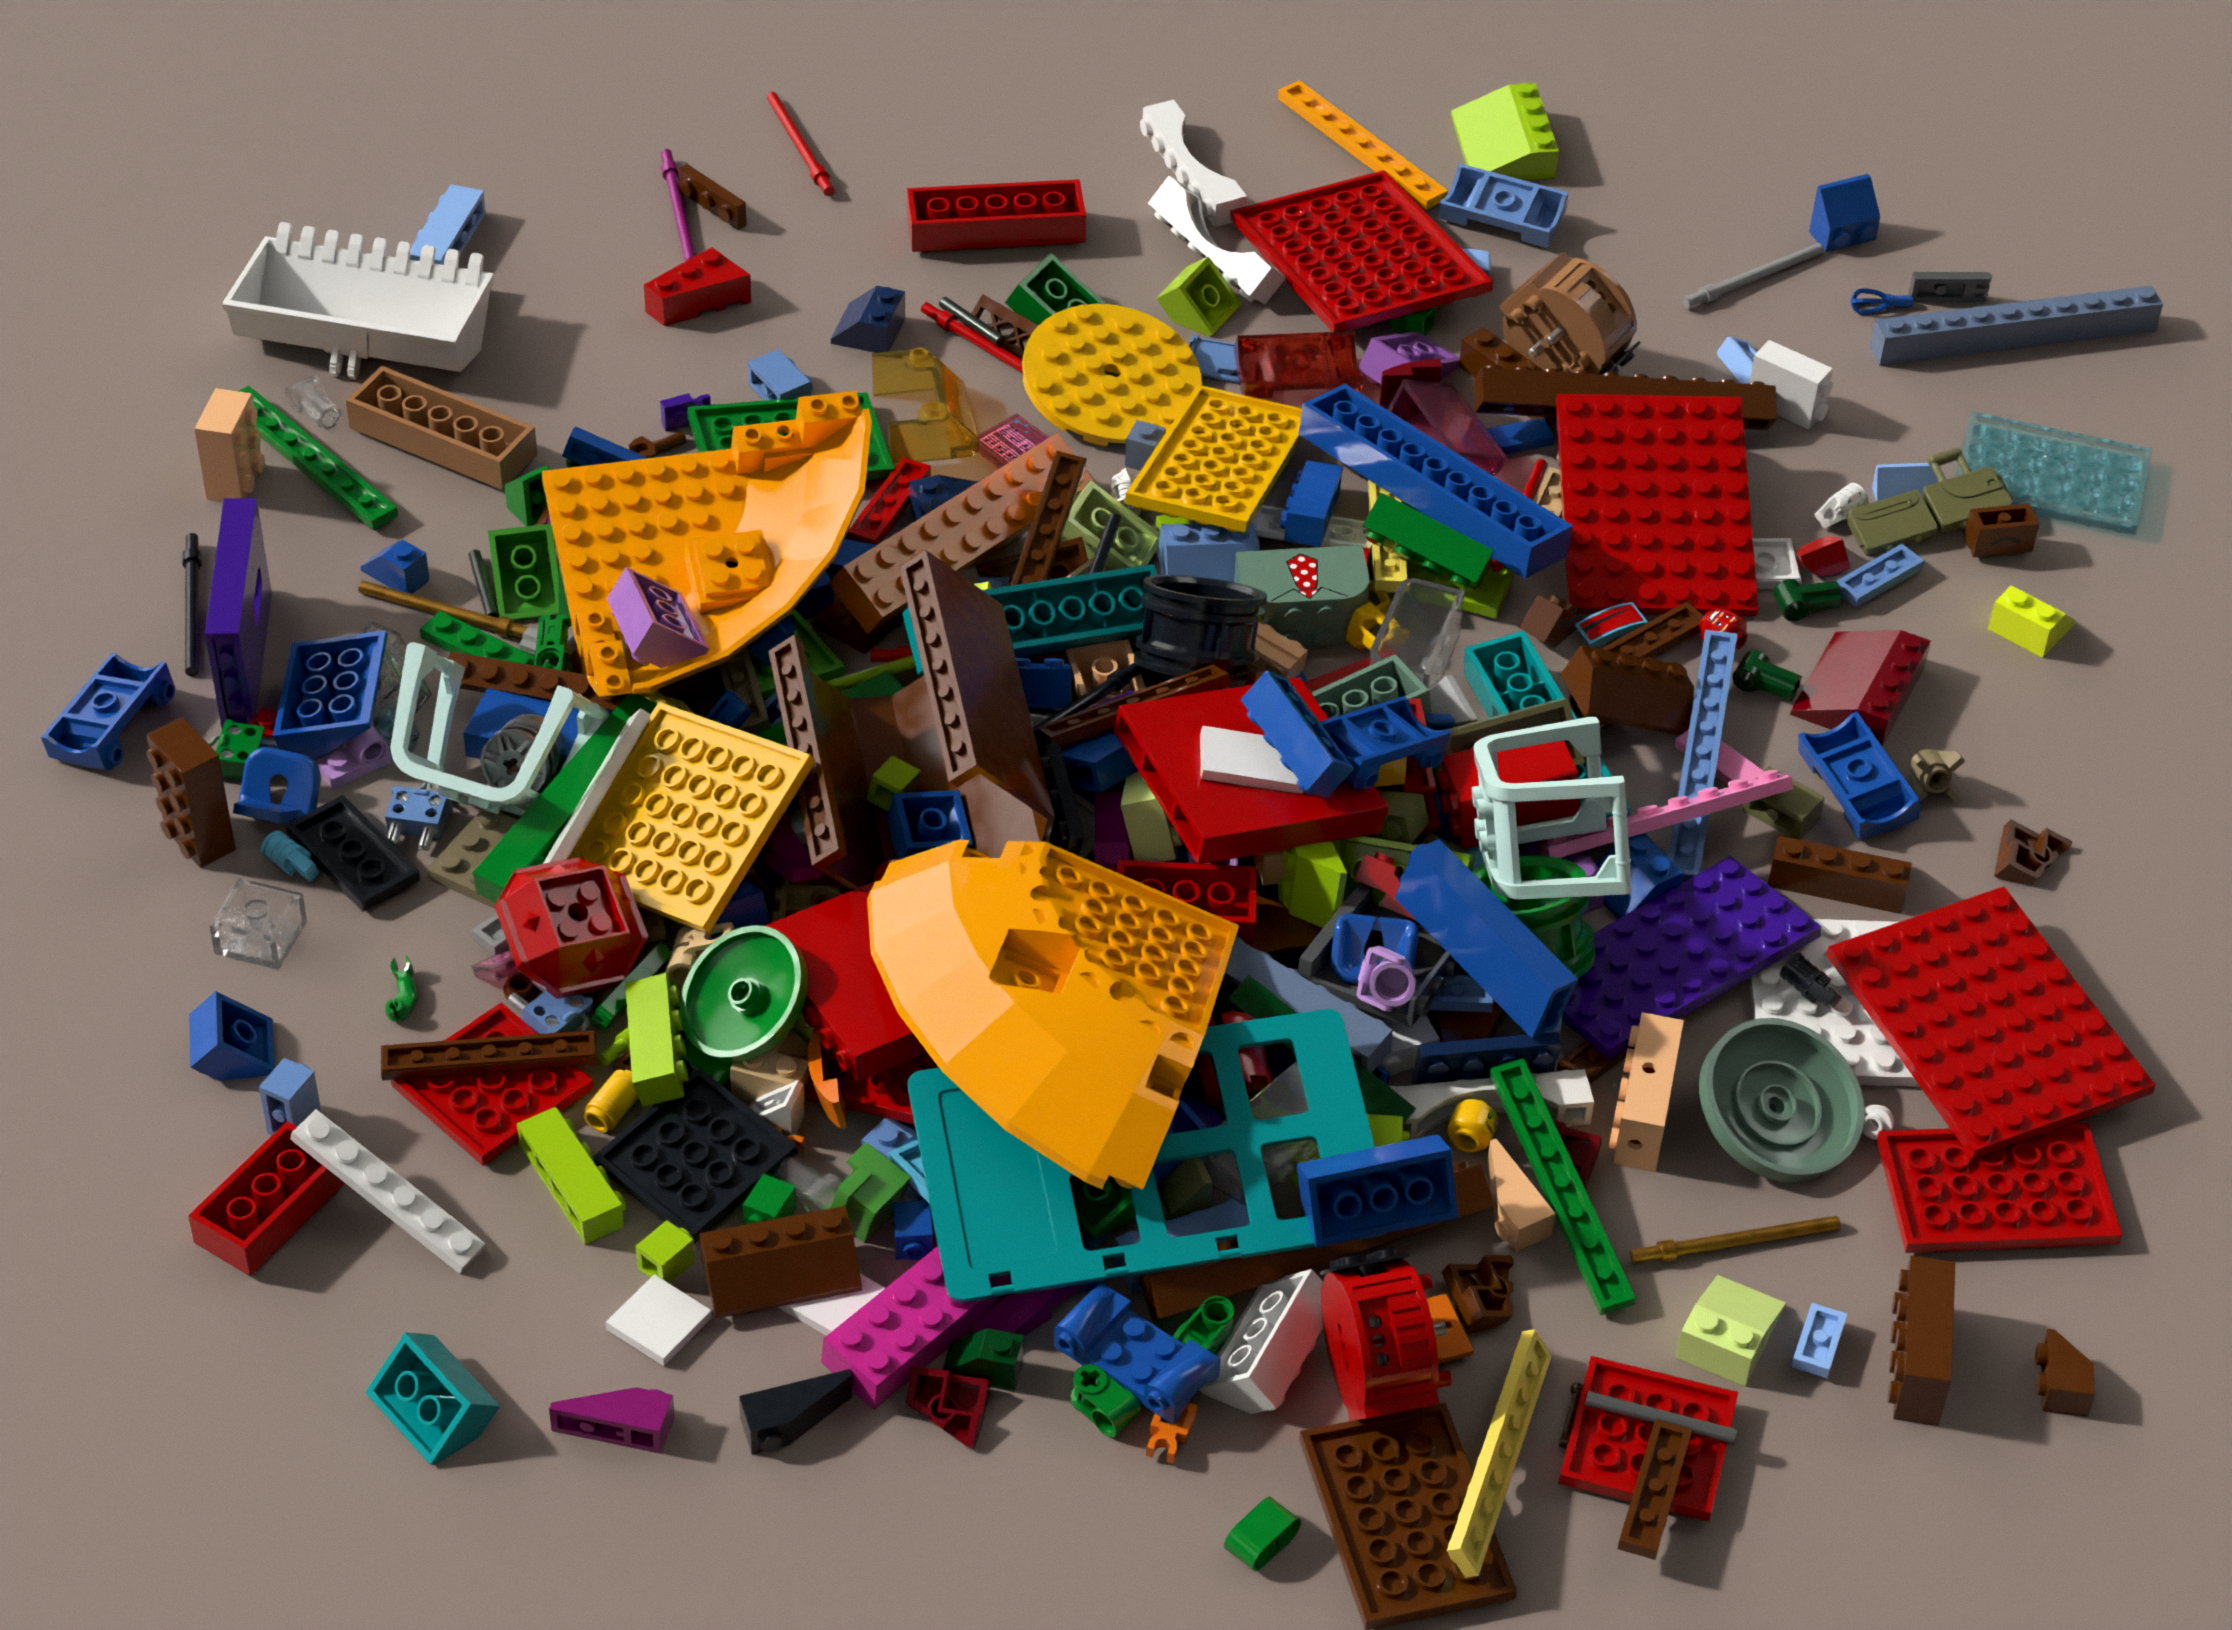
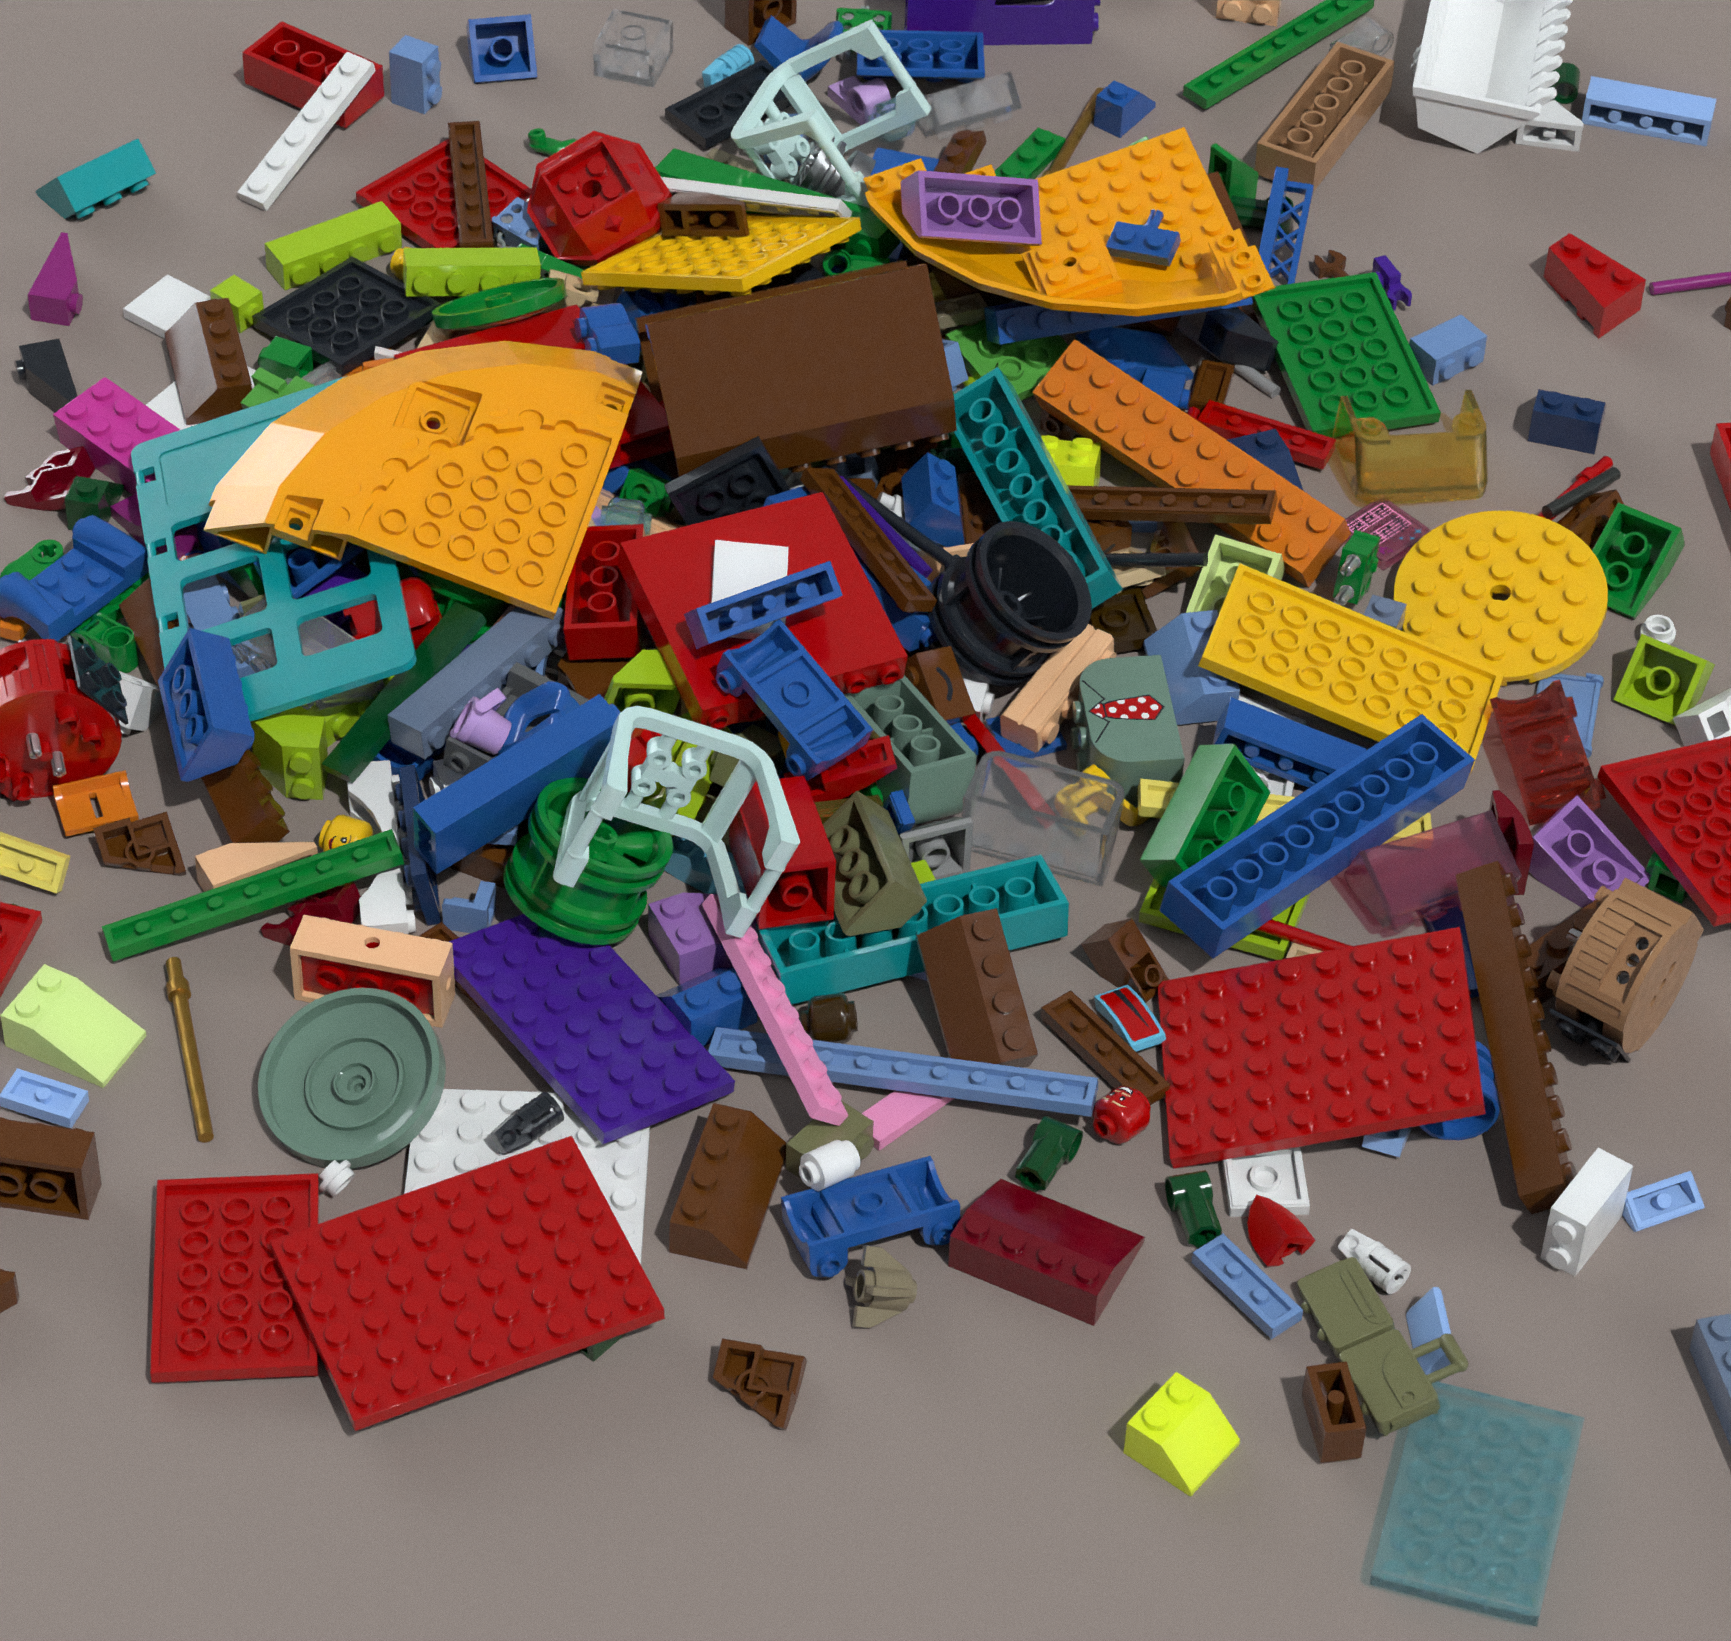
camera: 90 degrees right, 0 degrees up
(619, 829) = (702, 215): none -> reddish brown slope
(702, 512) = (1145, 241): none -> blue plate
(825, 892) = (608, 332): none -> blue brick
(1090, 442) = (1356, 568): none -> green piece
(1136, 298) = (1659, 628): none -> white plate
(1644, 791) = (830, 1018): none -> dark brown head
(1832, 784) = (829, 1164): none -> white brick

